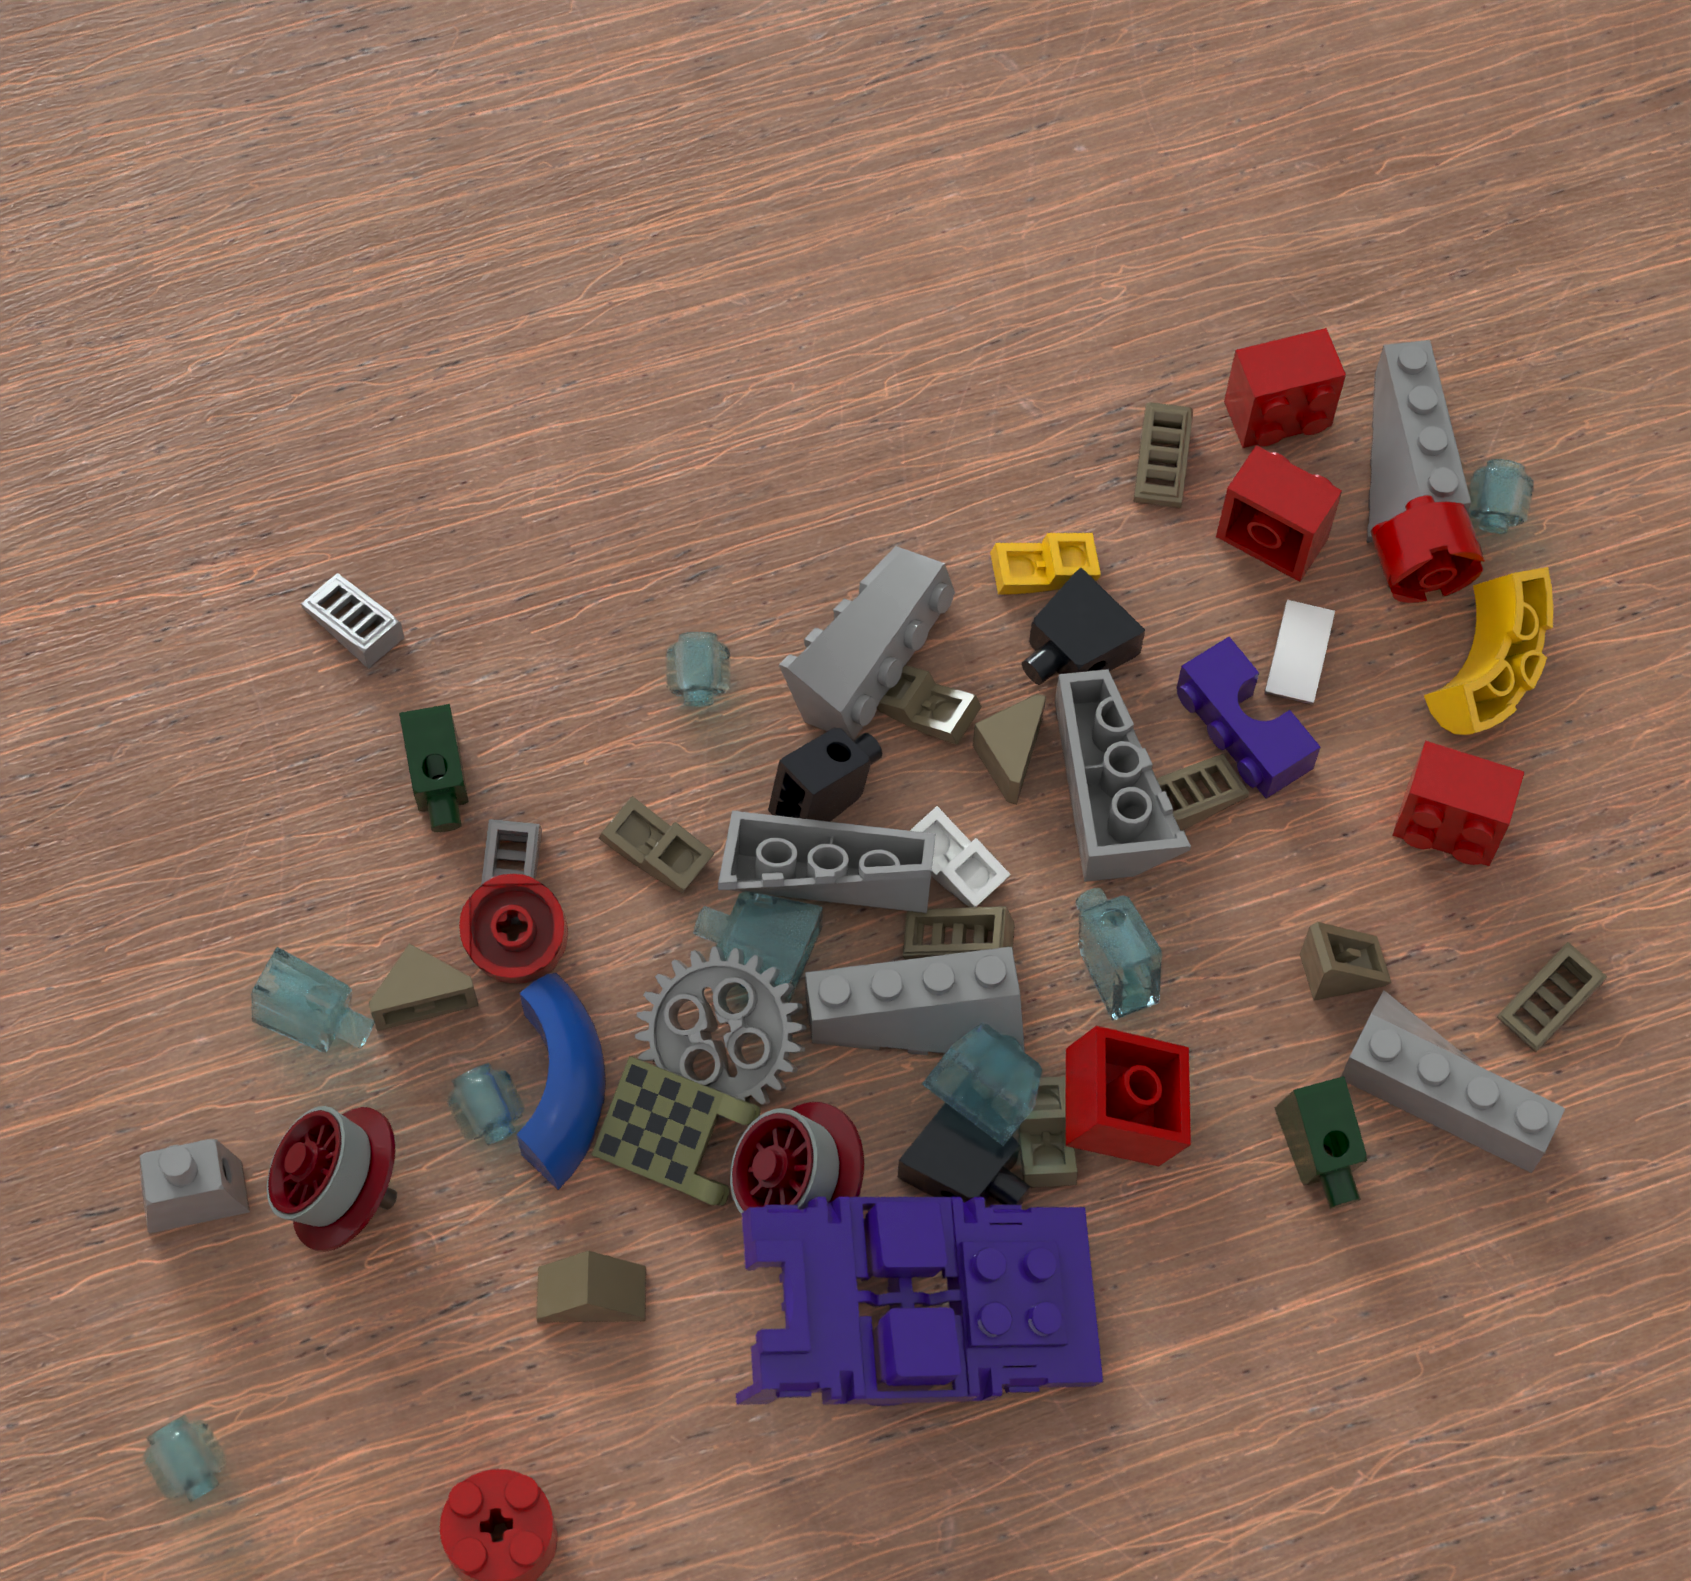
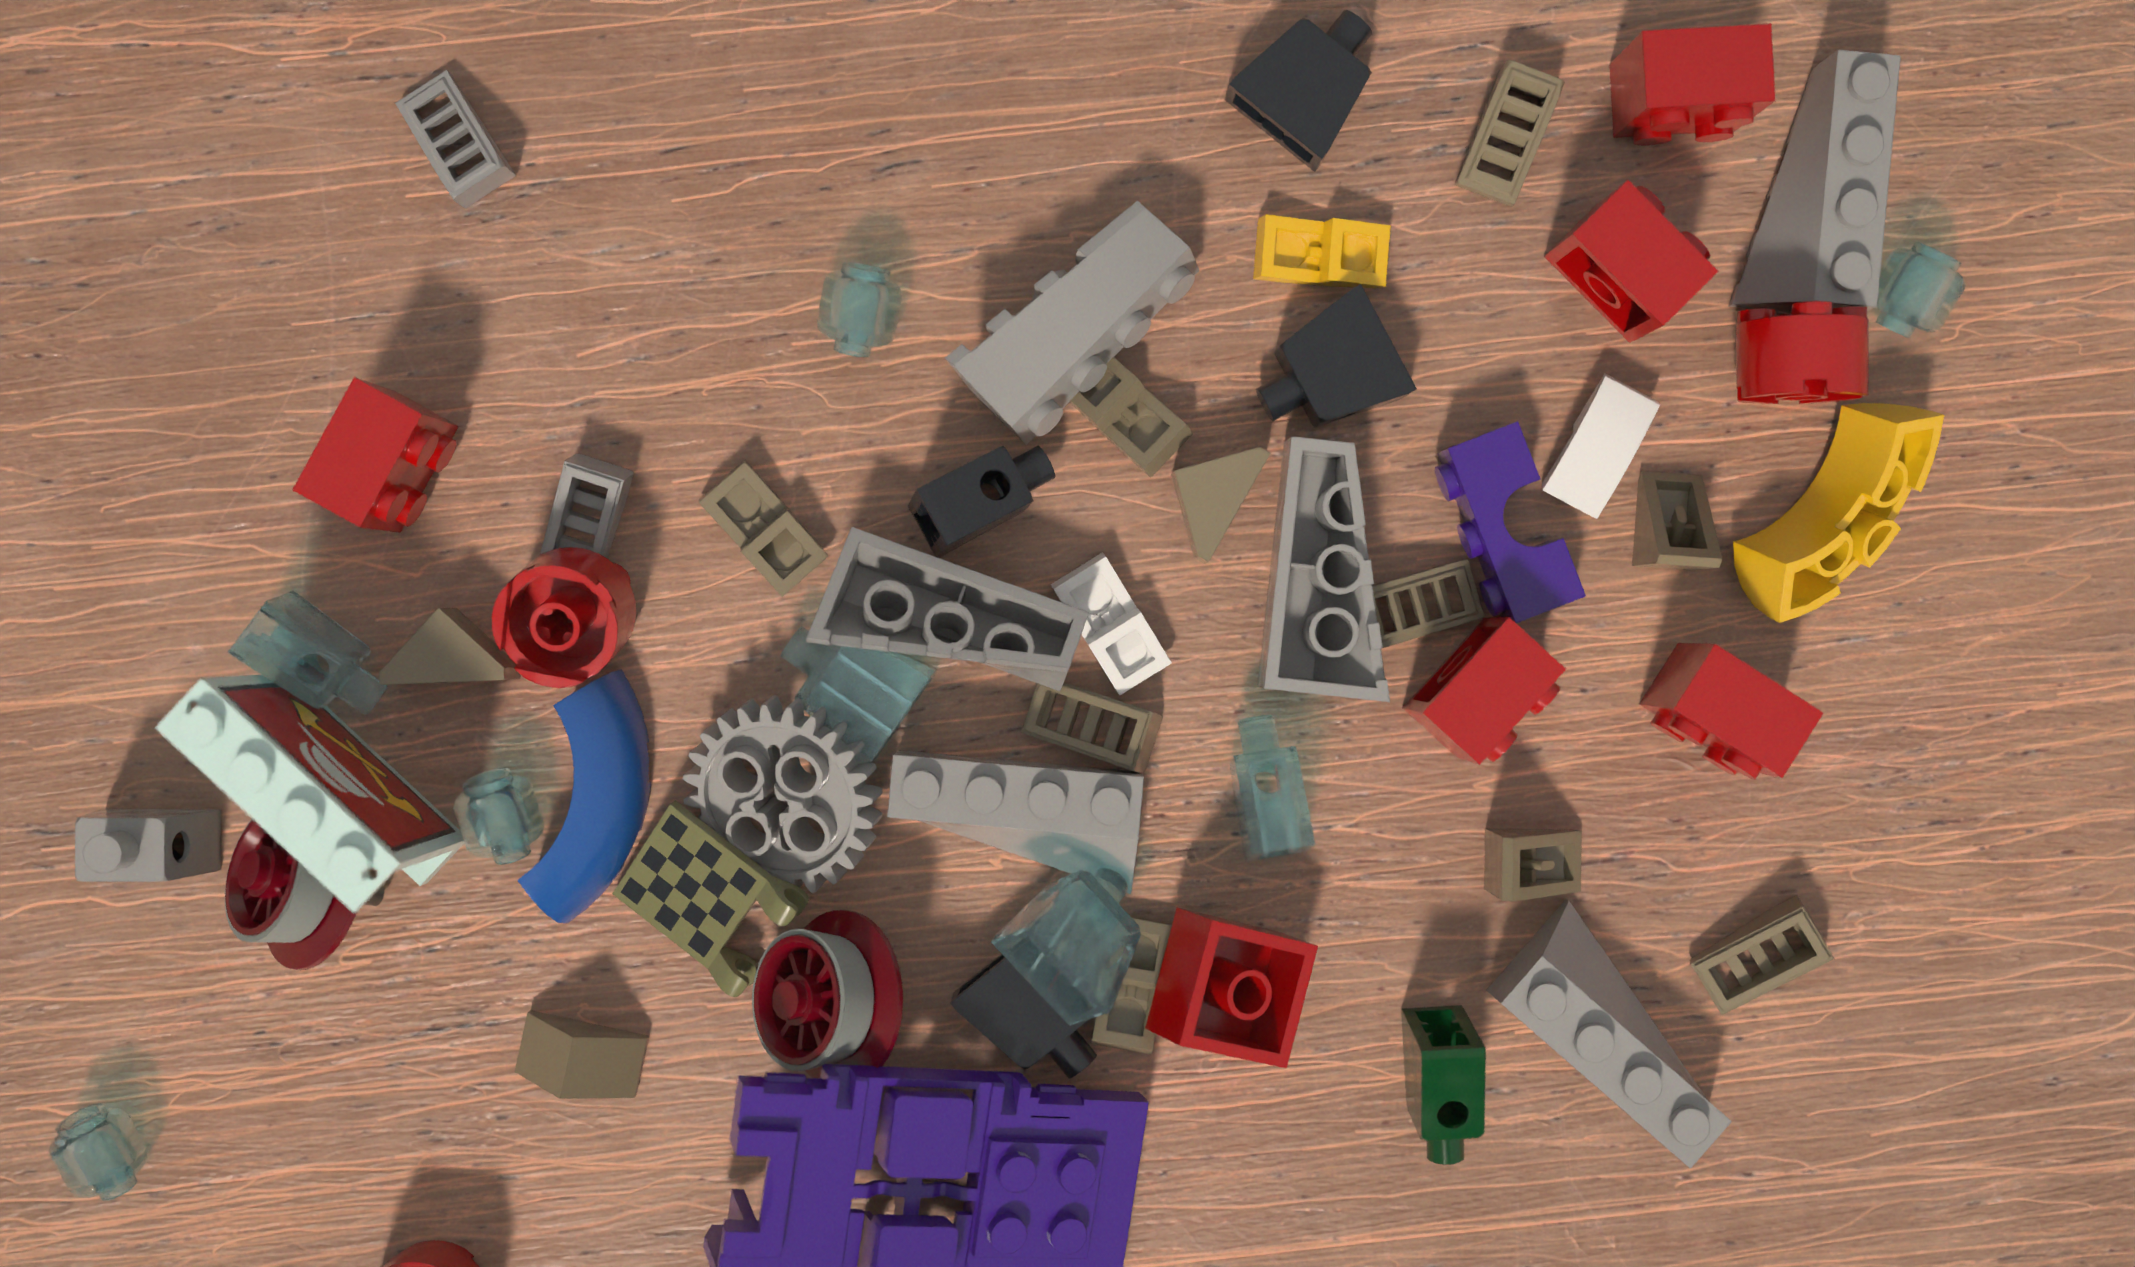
camera: 15 degrees right, 25 degrees up
(340, 842) = (377, 458): none -> red brick
(345, 1069) = (311, 785): none -> light aqua panel
(434, 753) = (514, 353): dark green torso -> none
(999, 454) = (1305, 85): none -> black torso
(1263, 830) = (1486, 690): none -> red brick
(1375, 697) = (1674, 523): none -> dark tan slope

